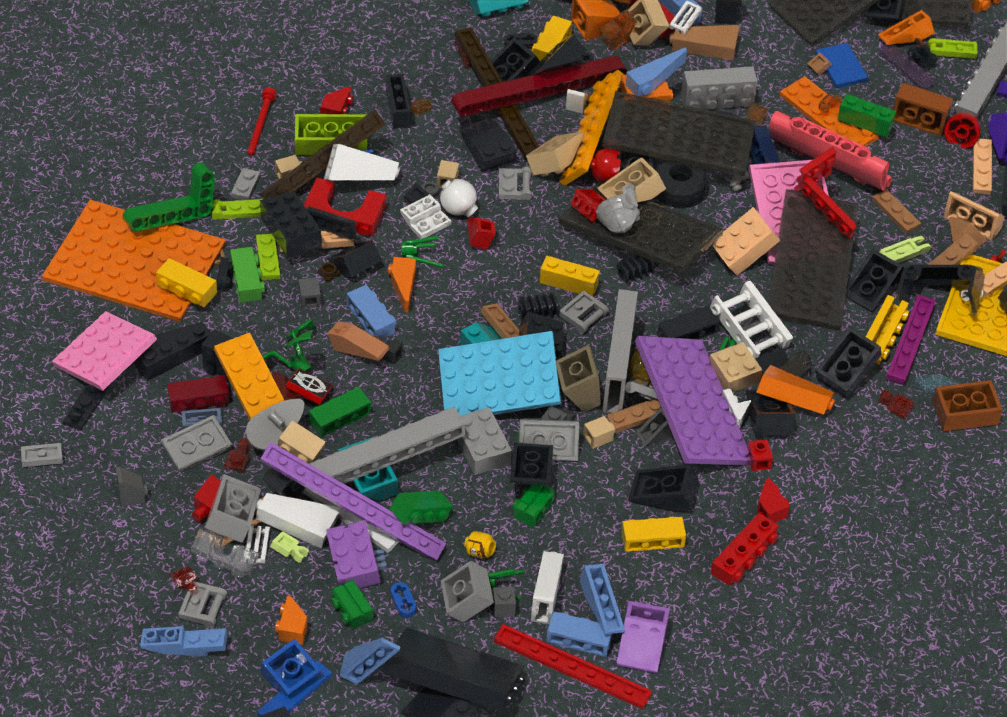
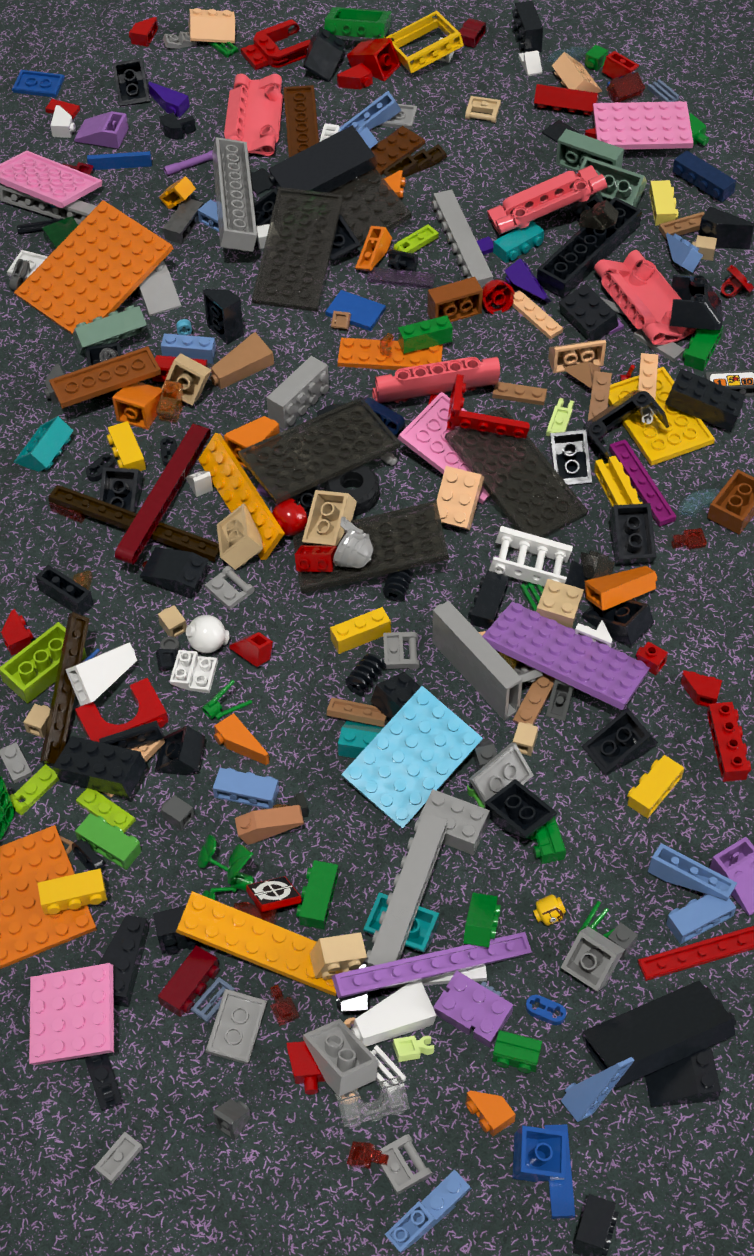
camera: 40 degrees left, 5 degrees up
(272, 422) = (290, 953): light grey shield -> none
(328, 271) = (170, 776): dark brown plate -> none
(547, 587) = (638, 898): white slope -> none
(562, 55) = (156, 457): black slope -> none
(580, 378) = (476, 704): dark tan slope -> none
(649, 76) = (249, 425): medium blue slope -> none
(680, 27) = (215, 366): white tile -> none
(757, 113) = (341, 393): clear orange slope -> none

